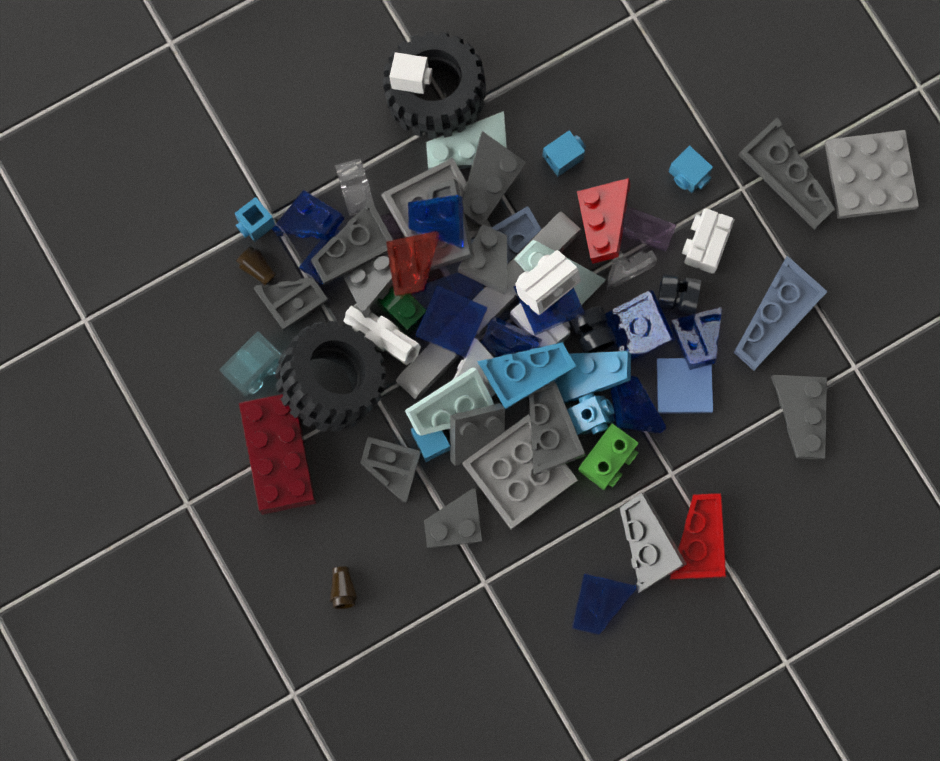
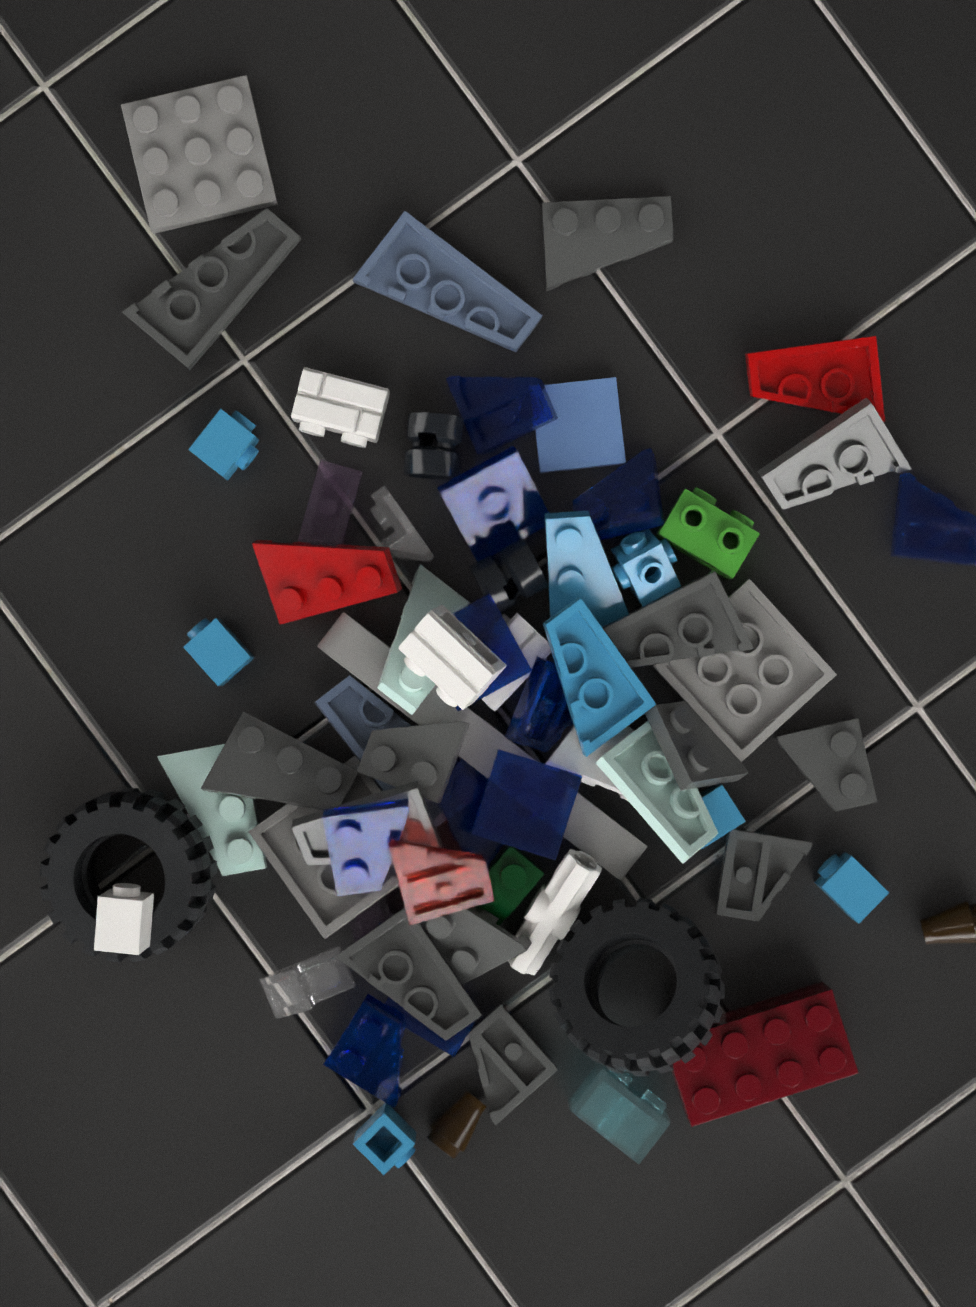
camera: 95 degrees left, 10 degrees up
(376, 523) = (850, 886): none -> dark azure brick

